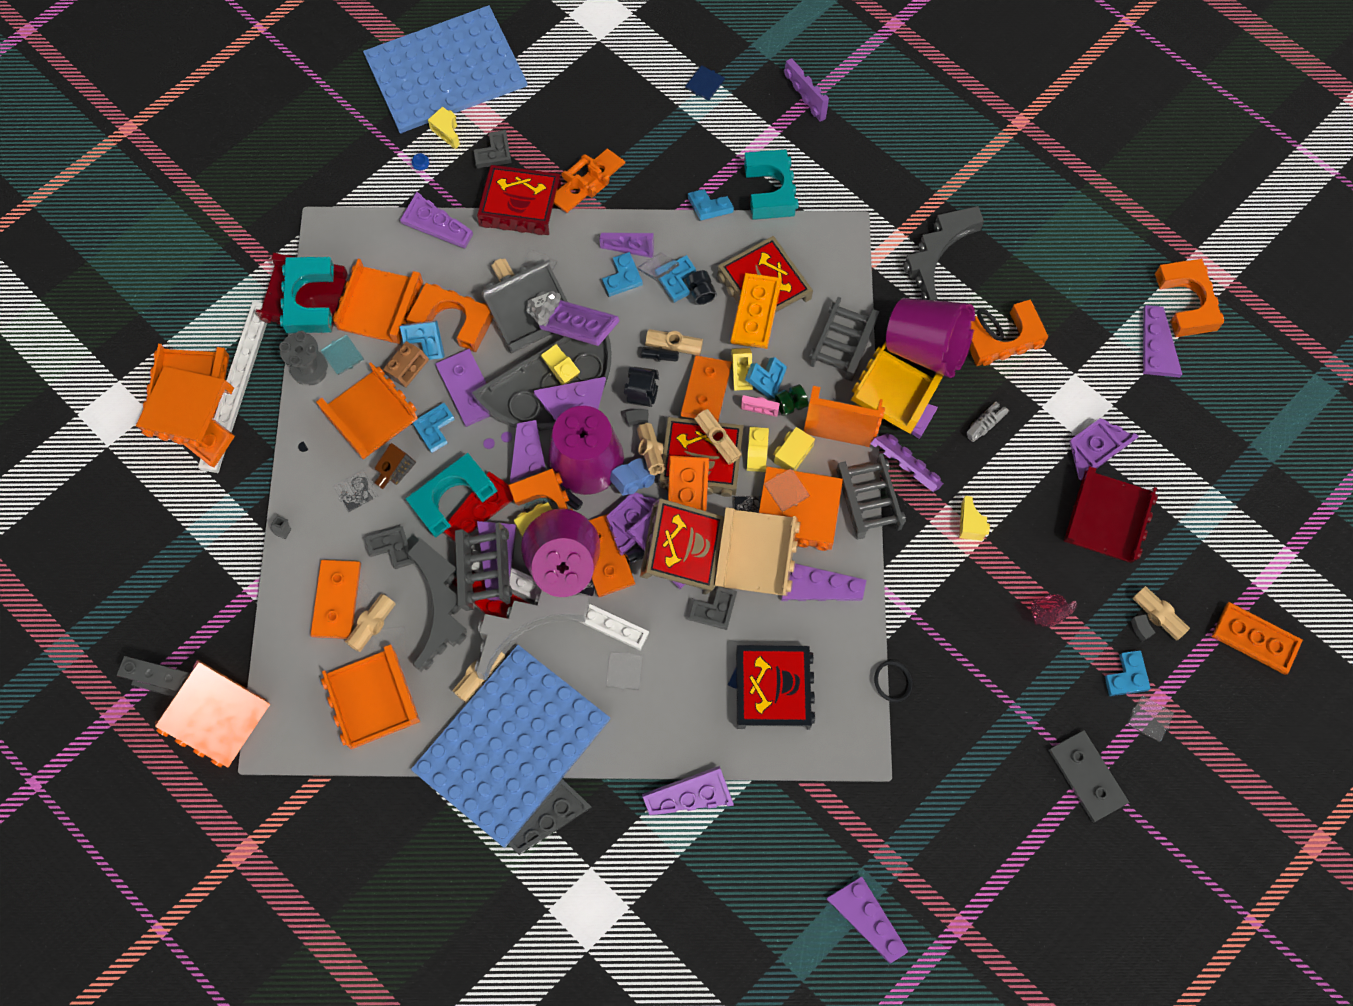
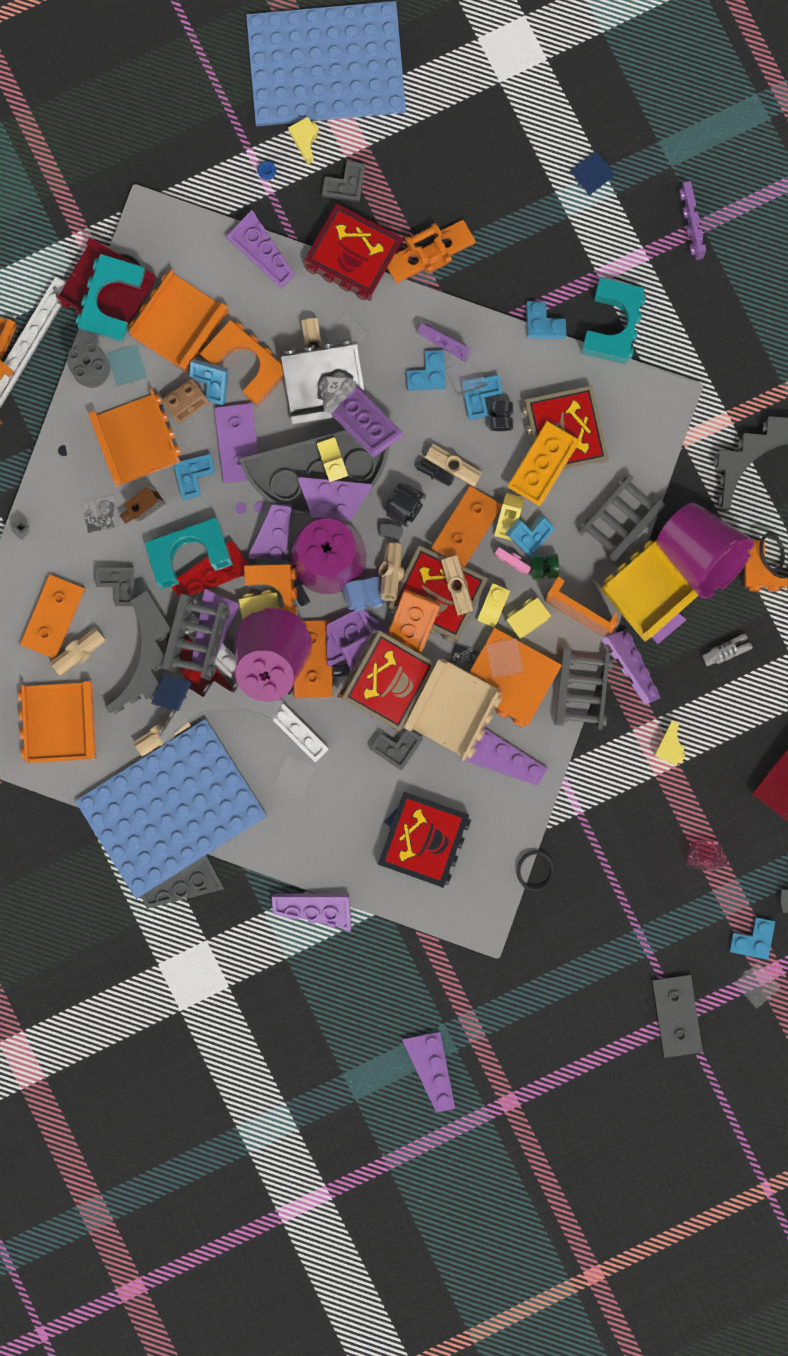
camera: 25 degrees right, 15 degrees up
(475, 625) = (171, 693): none -> dark blue piece

